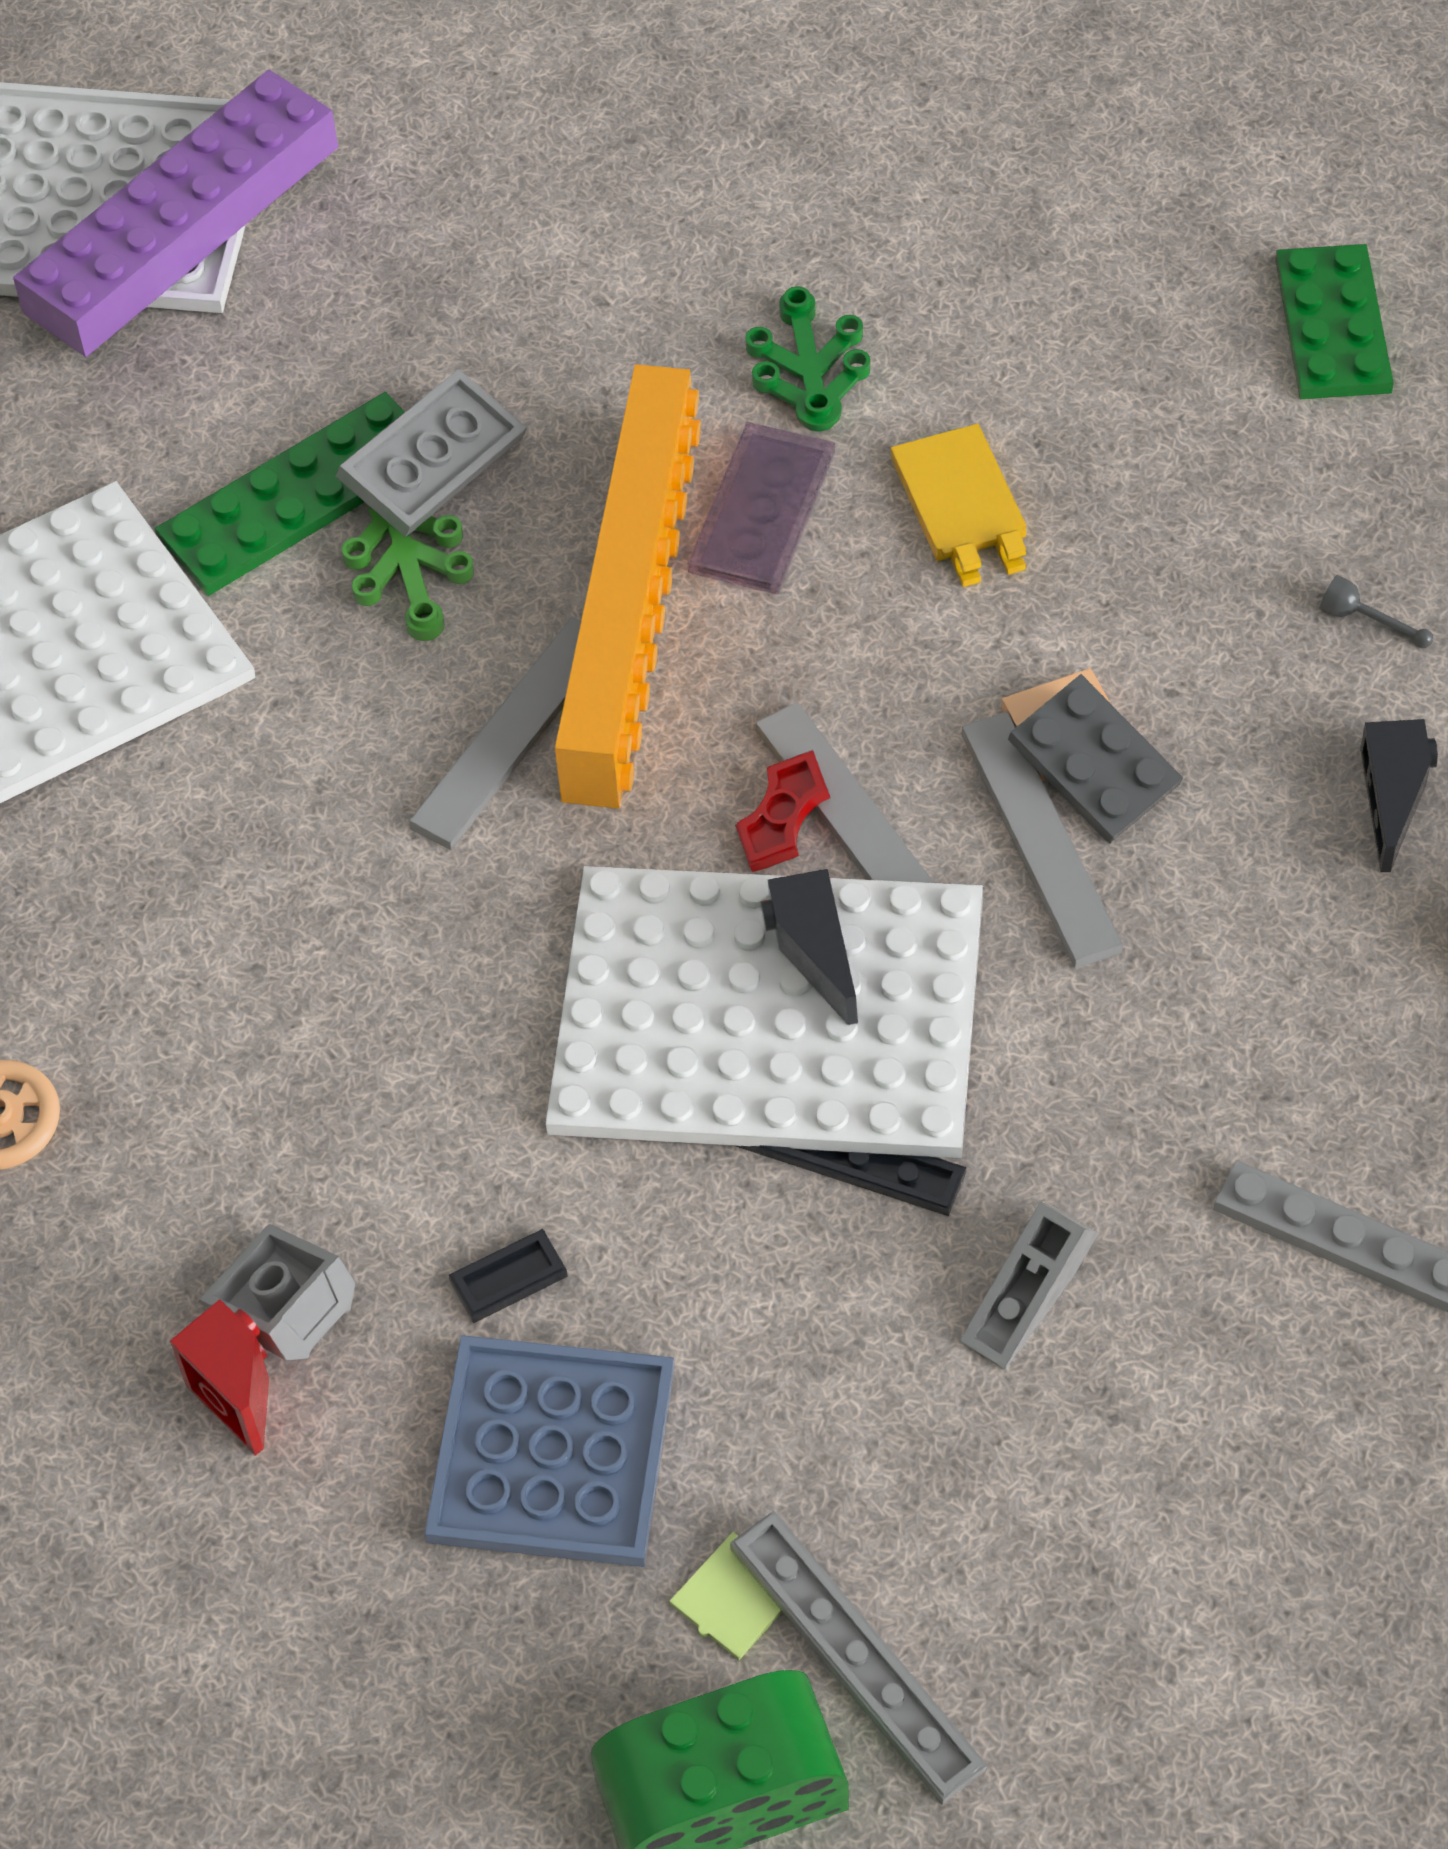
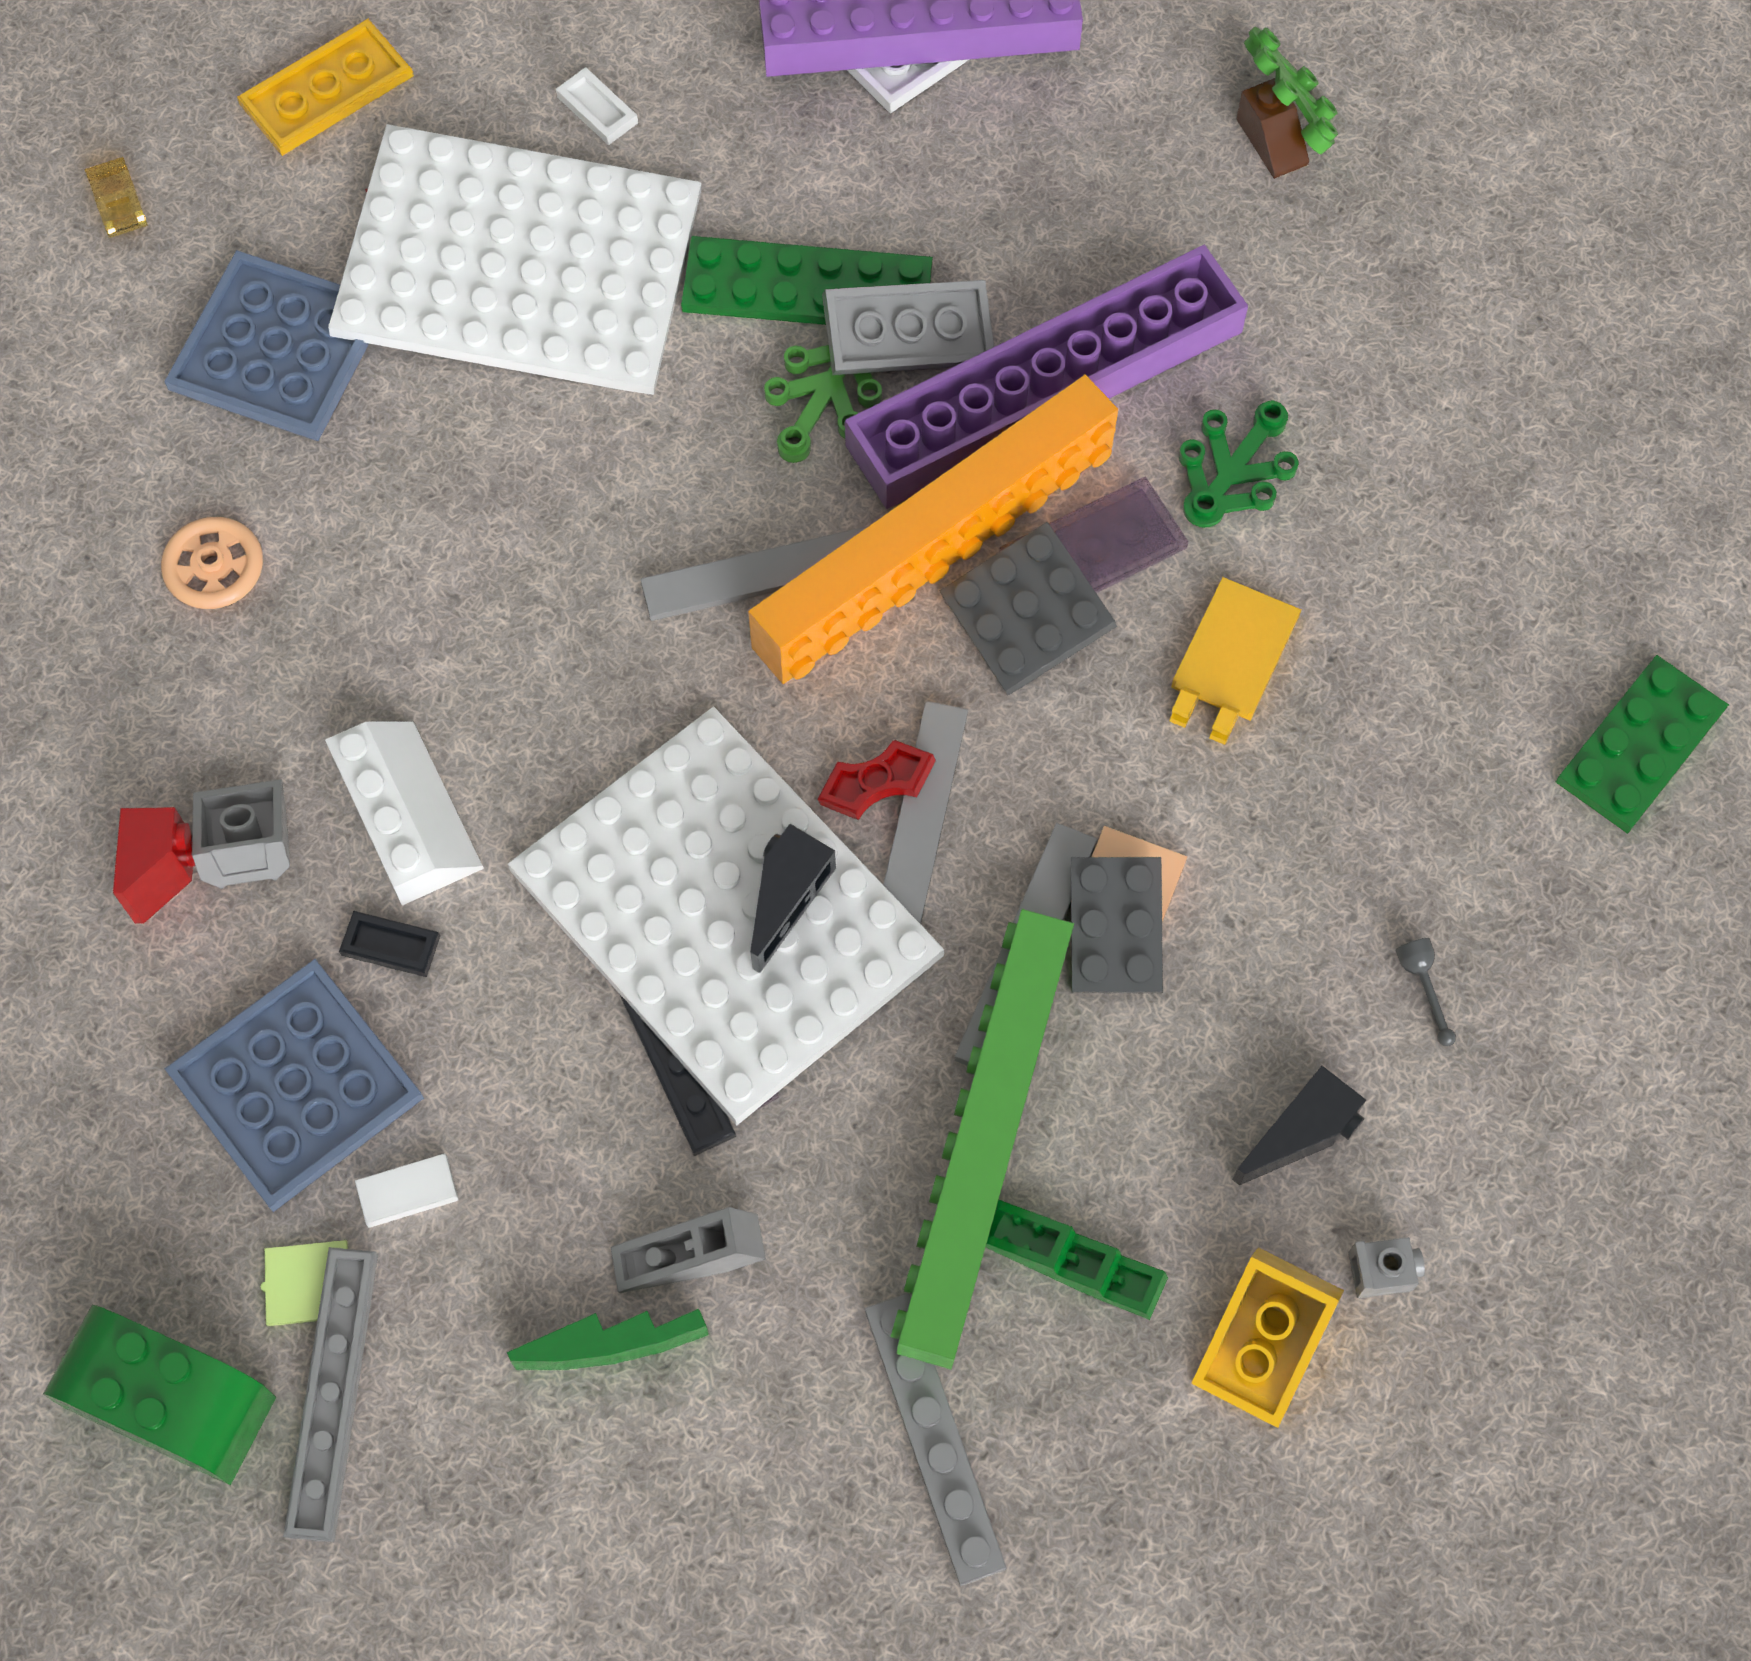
camera: 40 degrees right, 10 degrees up
(400, 1163) = (404, 807): none -> white slope
(495, 35) = (1294, 86): none -> bright green plant
(563, 92) = (1272, 129): none -> reddish brown slope
(571, 431) = (1110, 339): none -> medium lavender brick
(741, 1448) = (406, 1190): none -> white tile
(763, 587) = (1028, 608): none -> dark grey plate
(1036, 1416) = (588, 1345): none -> green slope
(1176, 992) = (984, 1141): none -> bright green brick
(1325, 1029) = (1075, 1259): none -> green slope

